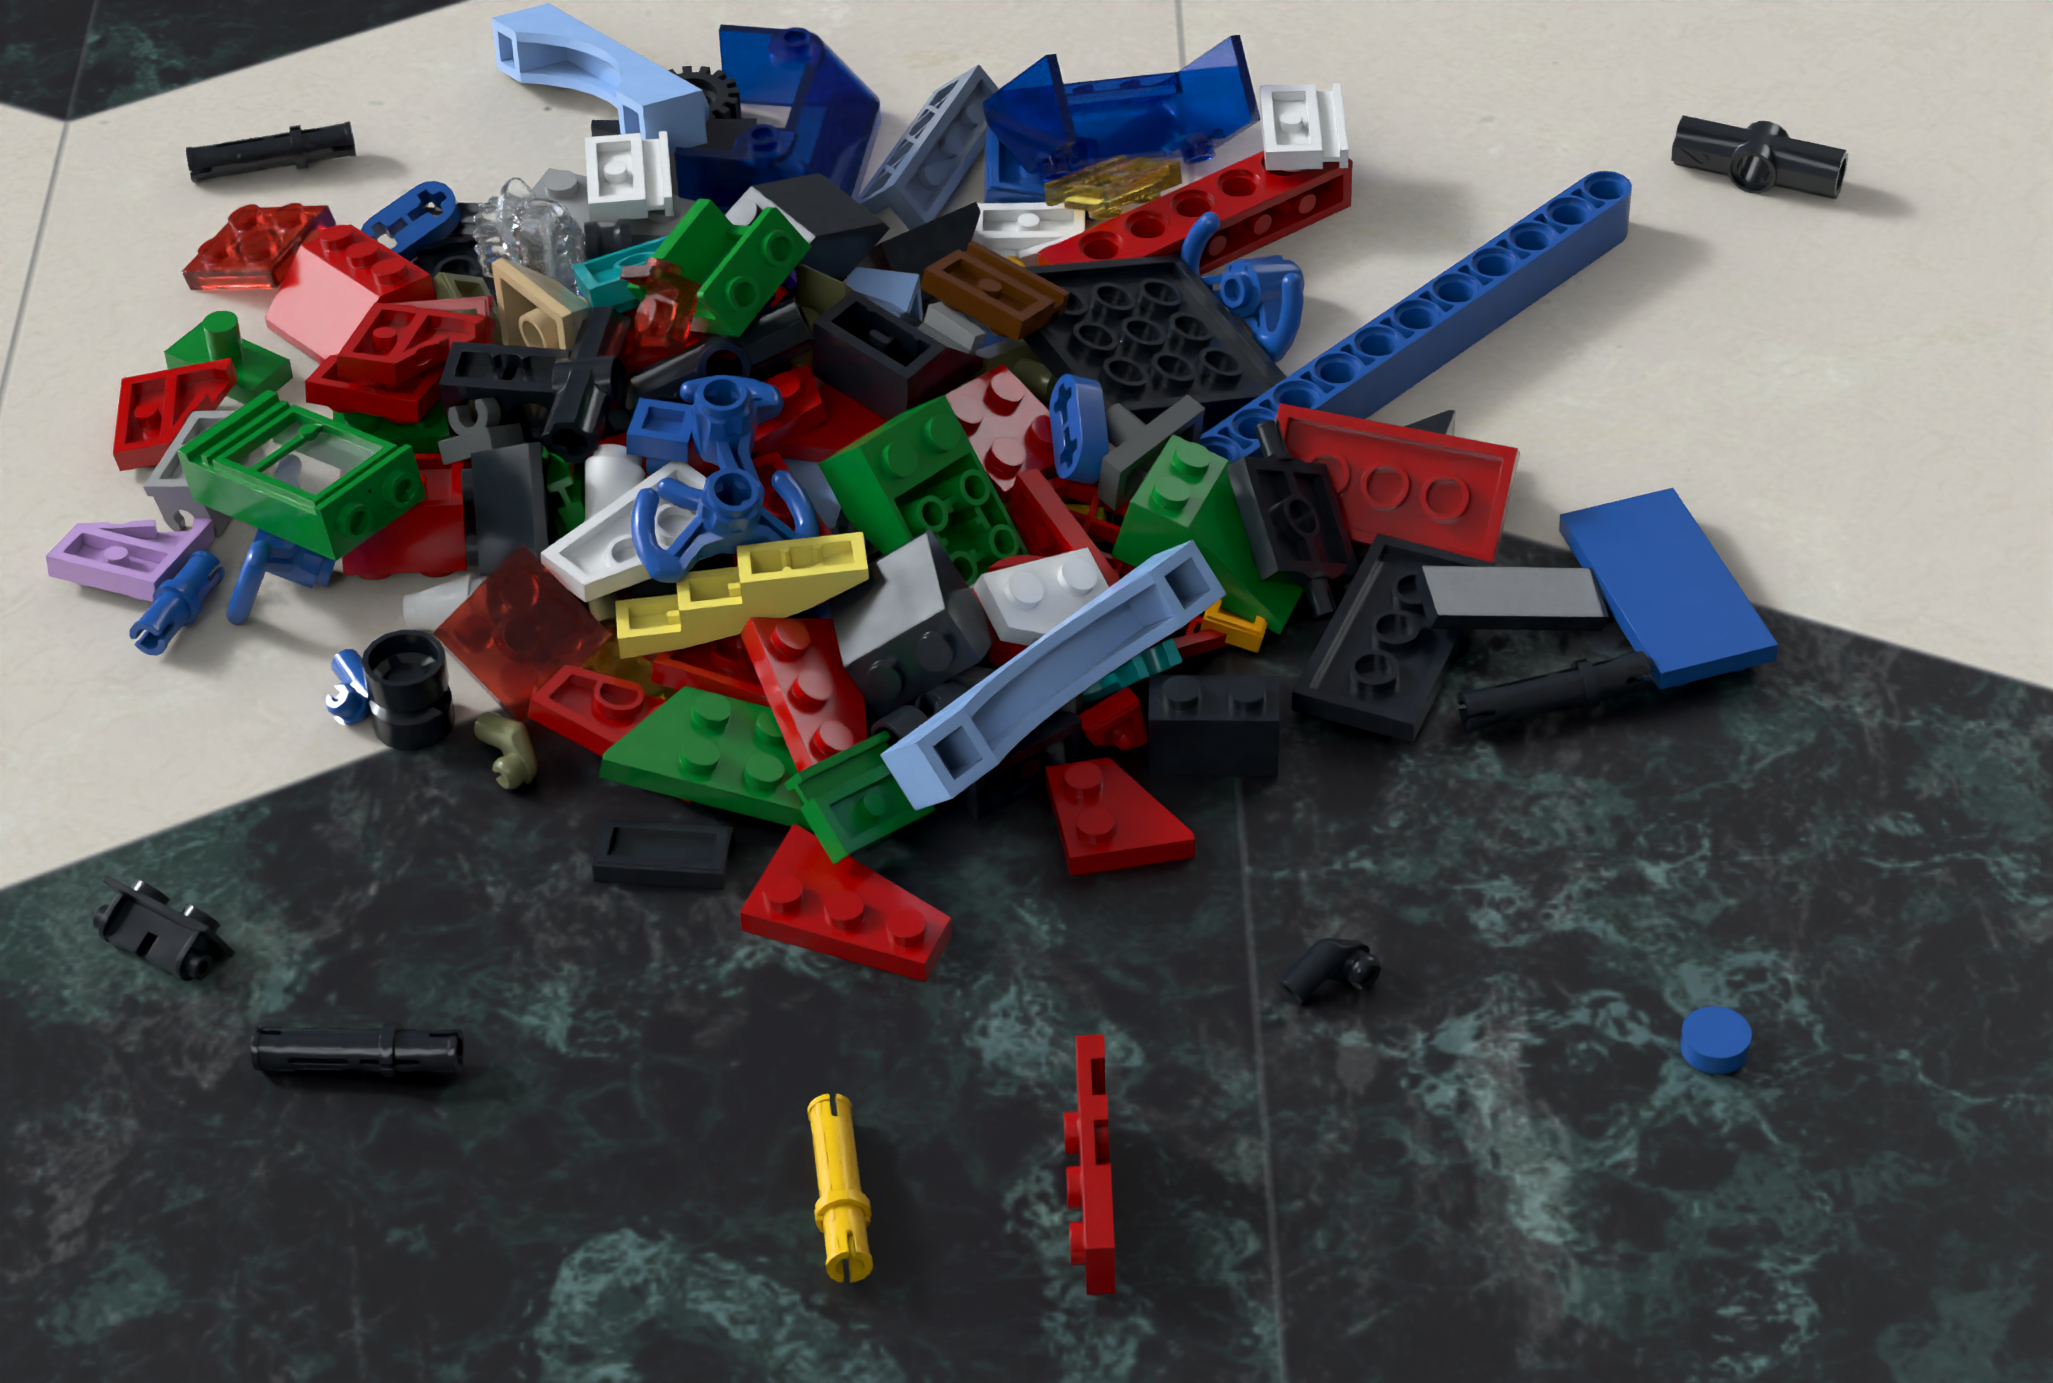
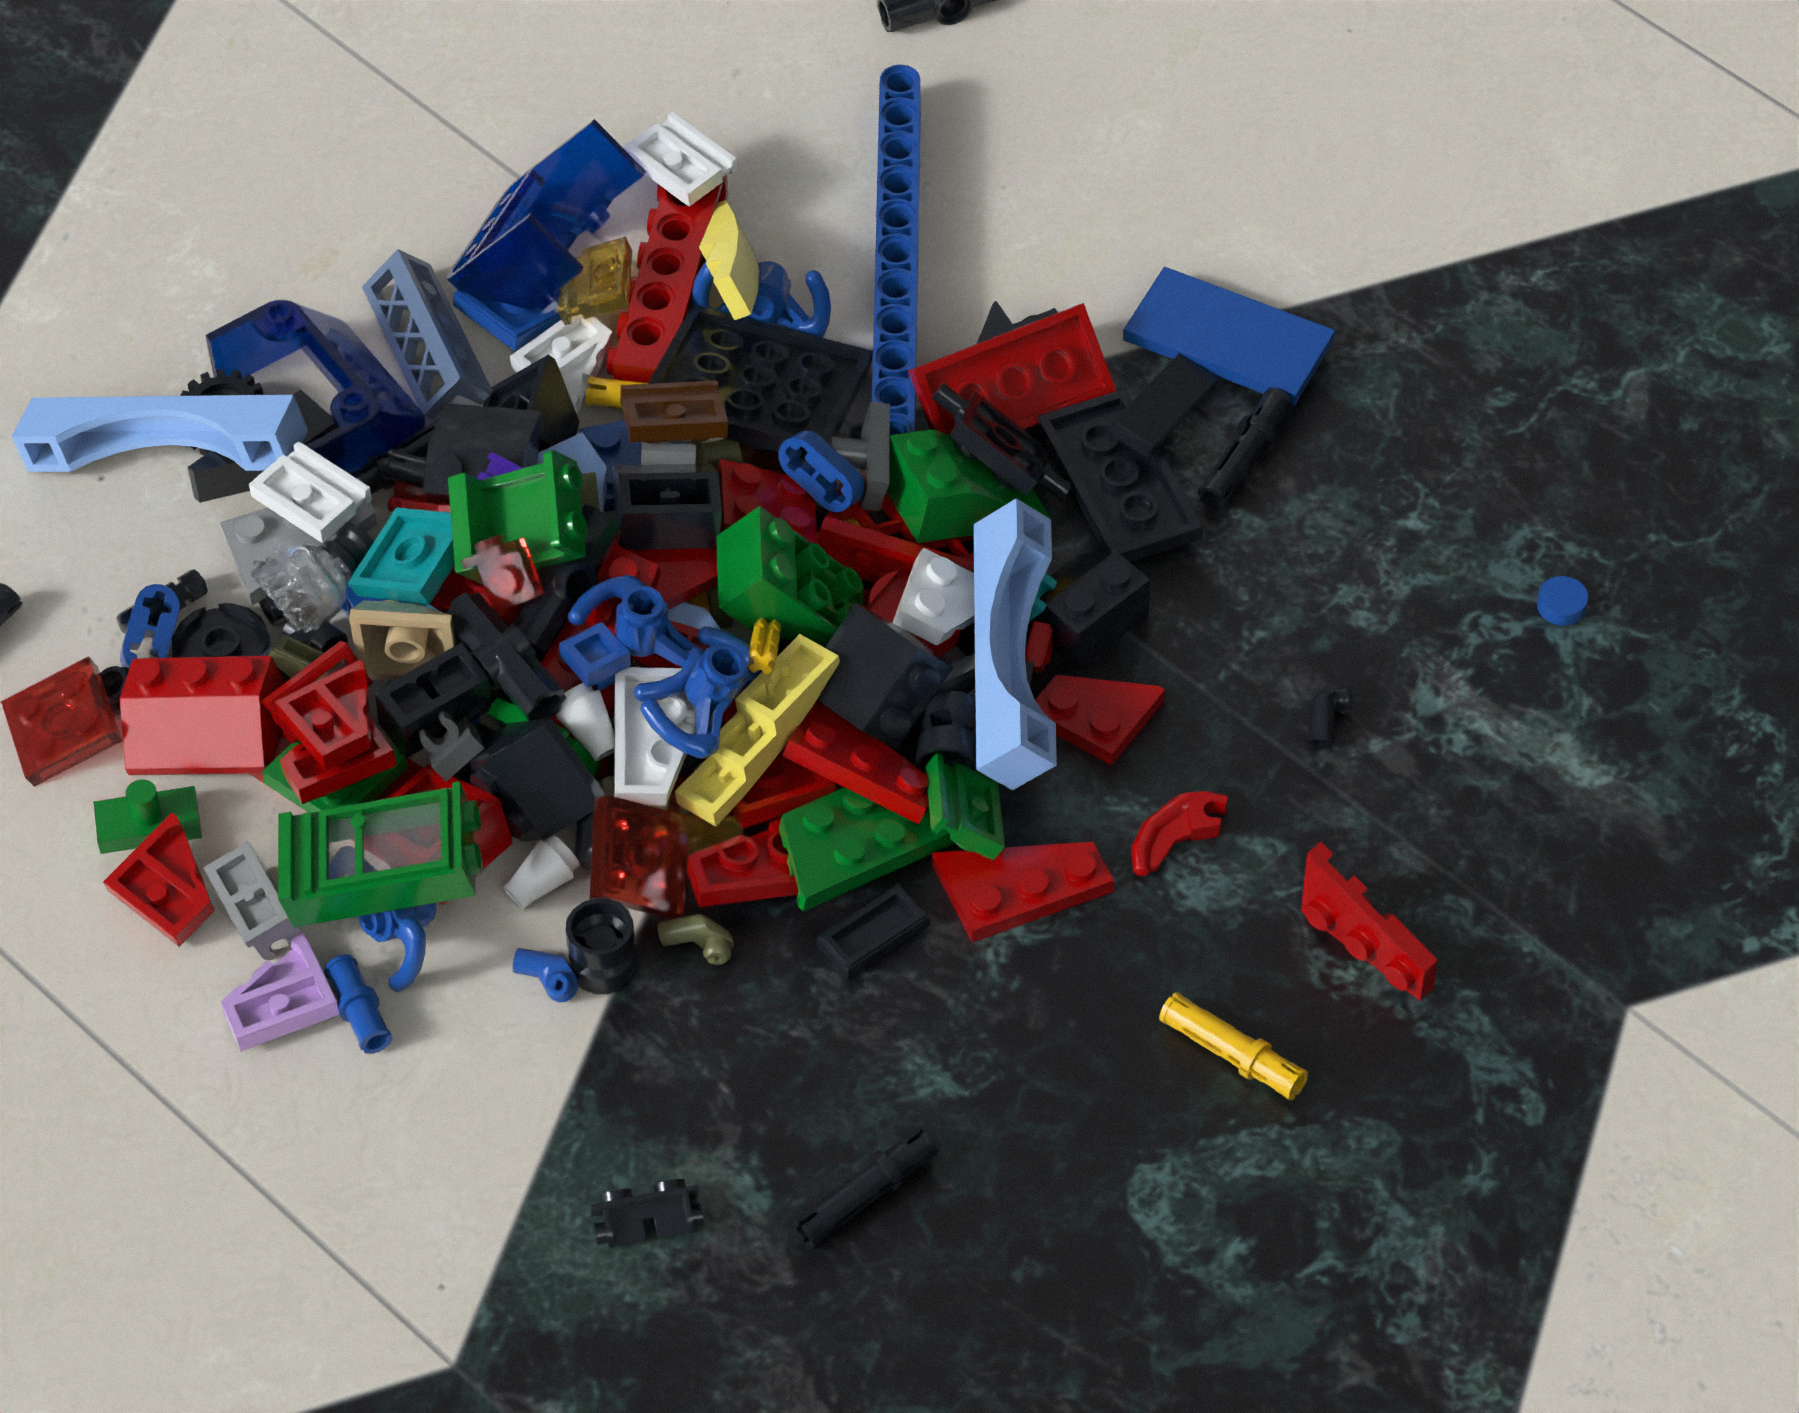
camera: 45 degrees left, 10 degrees up
(813, 517) = (764, 646): none -> yellow axle
(1062, 962) = (1173, 823): none -> red piece
(1241, 229) = (731, 261): none -> light yellow slope

